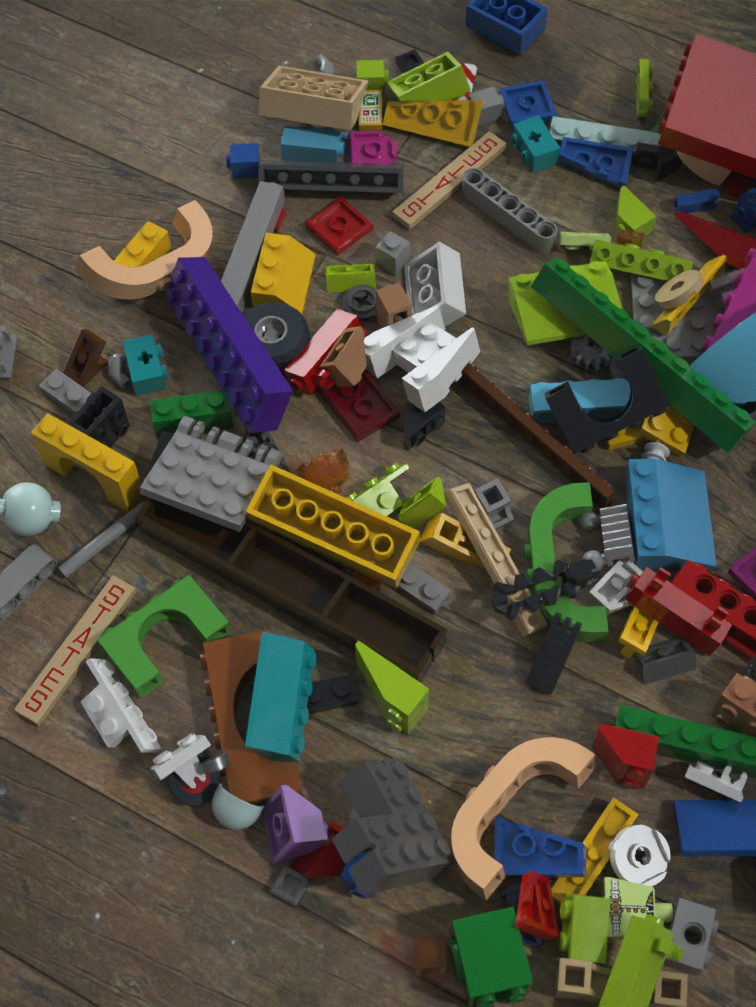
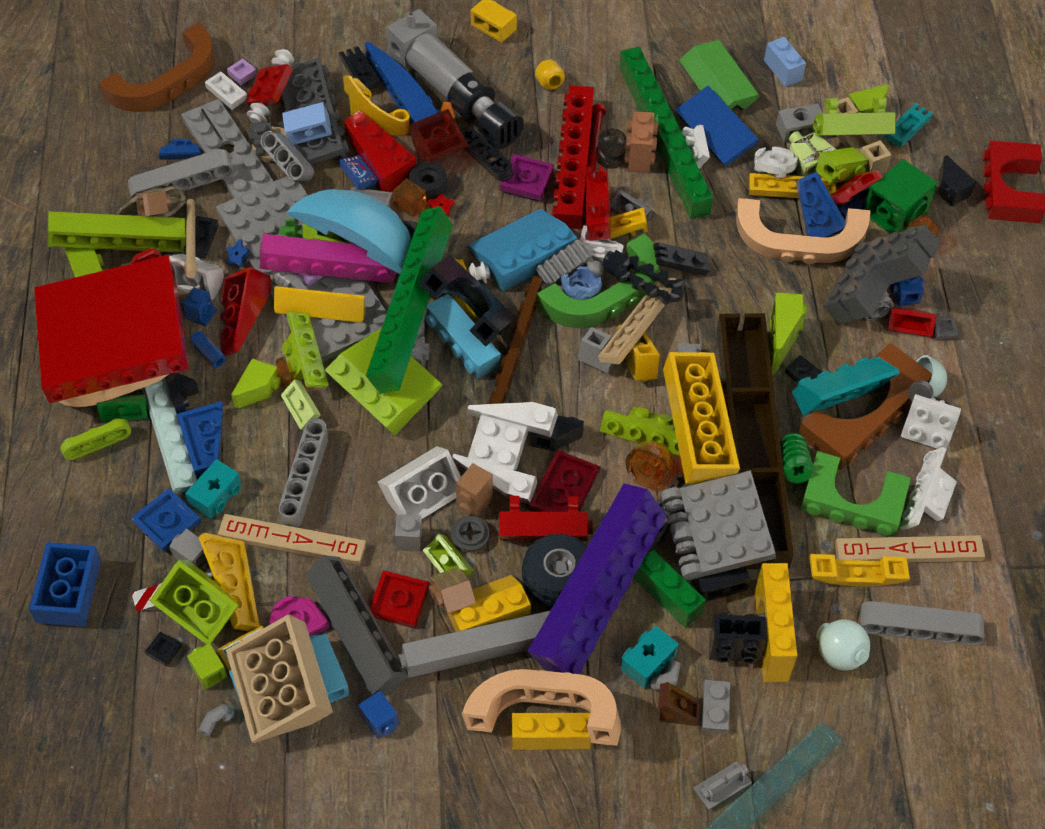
camera: 125 degrees left, 5 degrees down
(100, 542) = (827, 590): light grey piece -> none
(107, 561) = (859, 572): none -> yellow slope
(237, 596) = (796, 458): none -> green piece
(292, 825) = (918, 332): medium lavender slope -> none
(308, 248) = (451, 590): none -> medium nougat brick
(347, 358) = (544, 496): medium nougat slope -> none
(423, 504) = (629, 385): lime slope -> none
(578, 534) = (581, 284): none -> medium blue hair
(626, 754) = (721, 180): red slope -> none
(677, 289) = (317, 314): tan tile -> none

